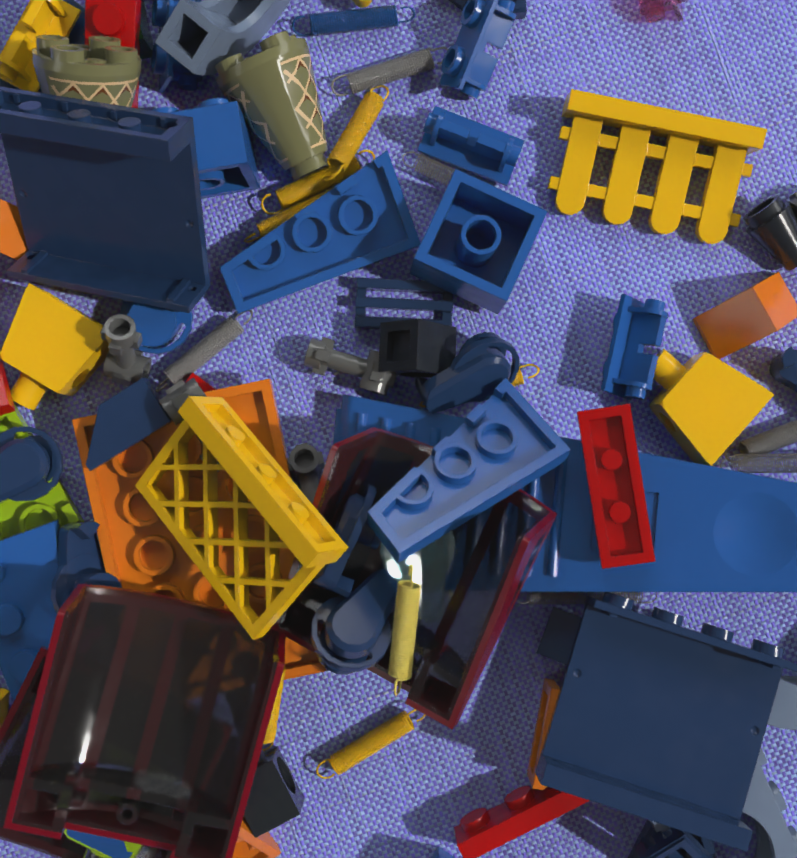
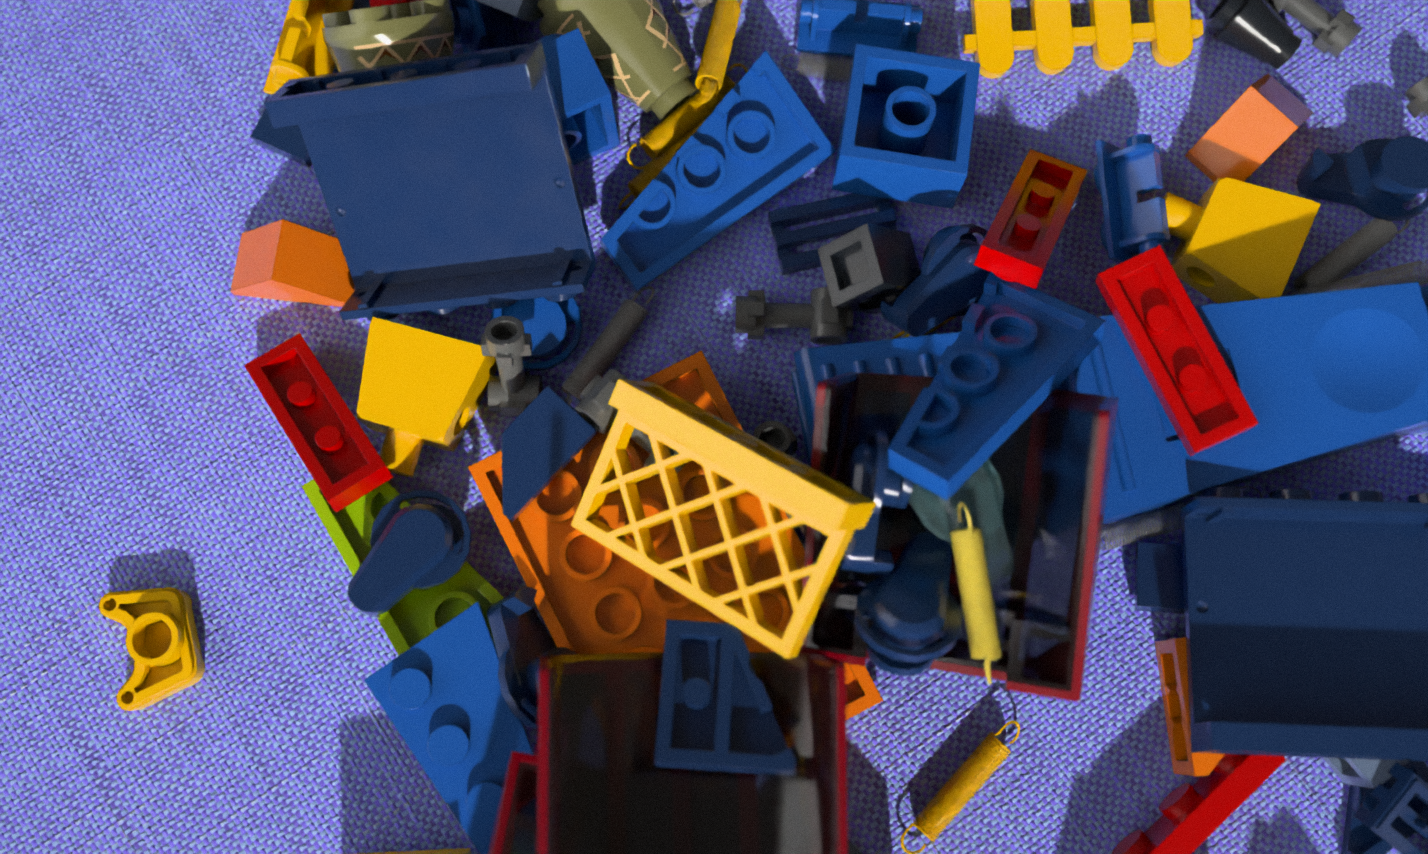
camera: 10 degrees left, 10 degrees down
(196, 653) = (715, 705): none -> dark blue wing
(549, 345) = (1030, 219): none -> red plate

